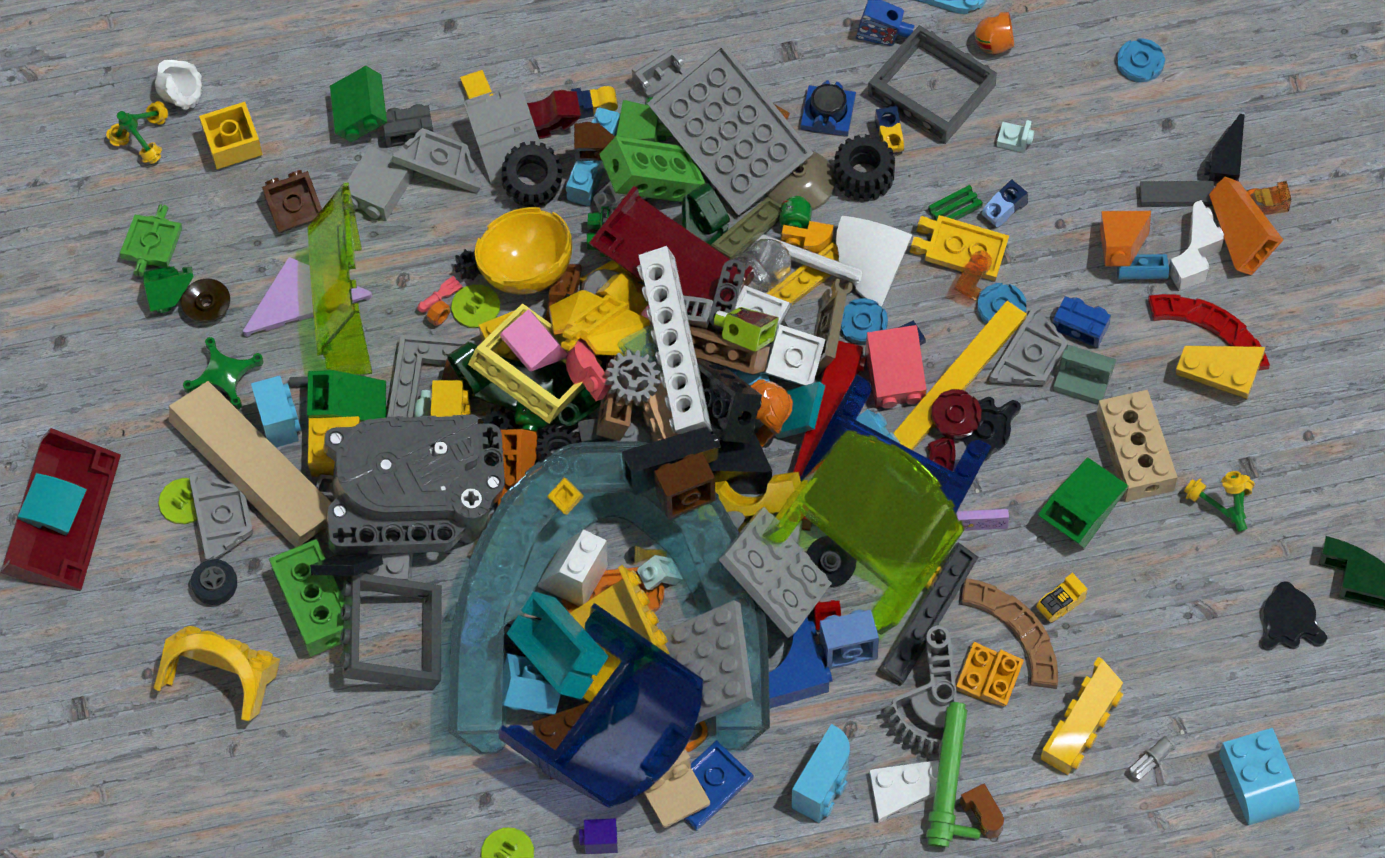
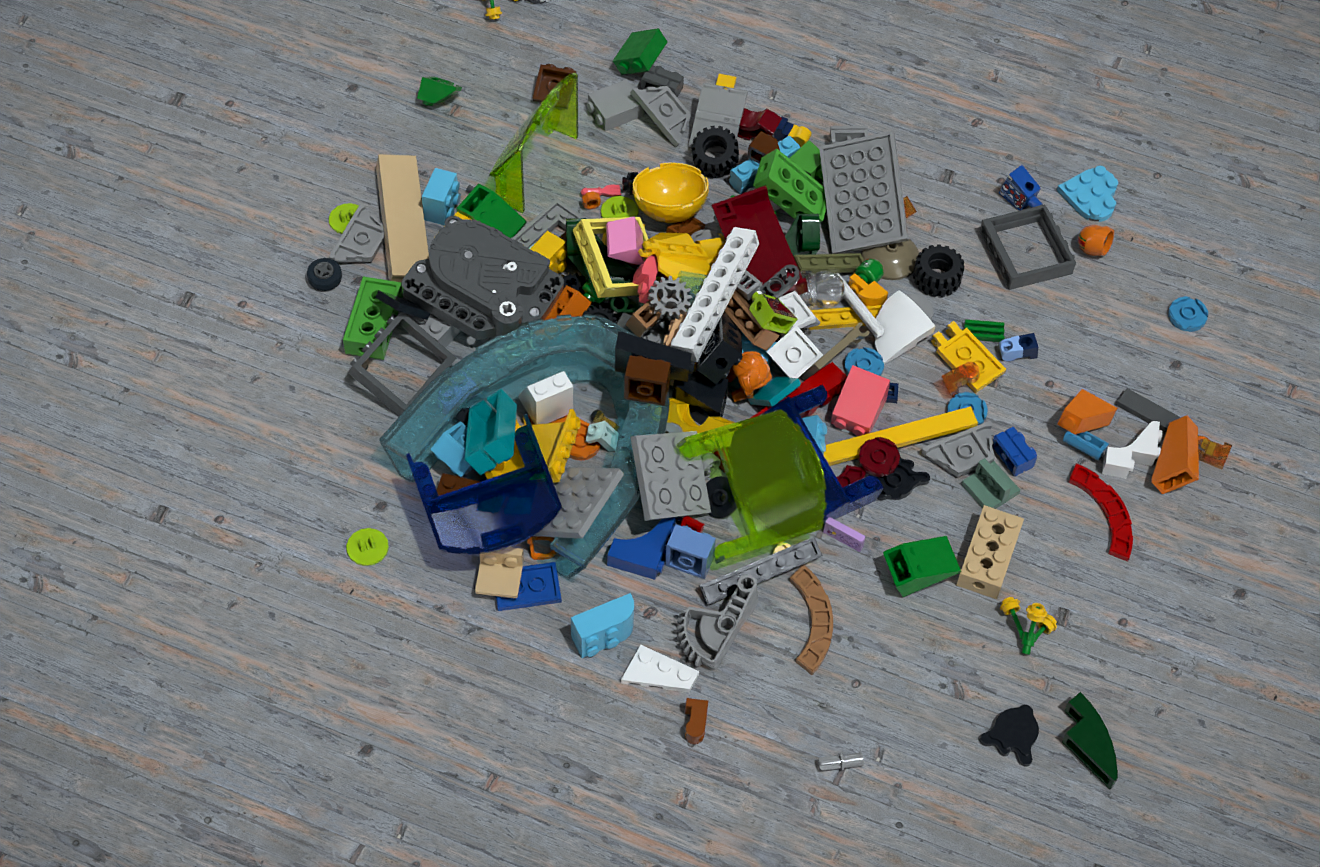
camera: 30 degrees right, 5 degrees down
(44, 554) = (269, 181): dark red slope -> none
(51, 503) = (267, 172): teal slope -> none
(151, 240) = (452, 60): bright green plate -> none
(204, 292) = (455, 111): dark brown dish -> none
(224, 372) = (431, 158): green piece -> none
(230, 135) = (548, 27): yellow brick -> none
(252, 666) = (297, 330): yellow piece -> none
(289, 299) = (495, 141): lavender tile -> none
(565, 496) = (568, 343): yellow tile -> none
(599, 836) = (431, 572): dark purple brick -> none
(830, 109) = (944, 223): piece -> none
(890, 128) = (975, 257): leg -> none
(942, 816) = (664, 704): bright green cylinder -> none
(989, 674) = (770, 635): light orange slope -> none
(1015, 136) = (1060, 311): light aqua bracket -> none
(1062, 598) = (859, 618): yellow leg -> none
(1083, 718) = (812, 703): yellow wedge -> none
(1222, 367) = (1091, 537): yellow wedge -> none
(1227, 154) = (1203, 405): black slope -> none
(1260, 776) = (908, 822): medium azure brick -> none

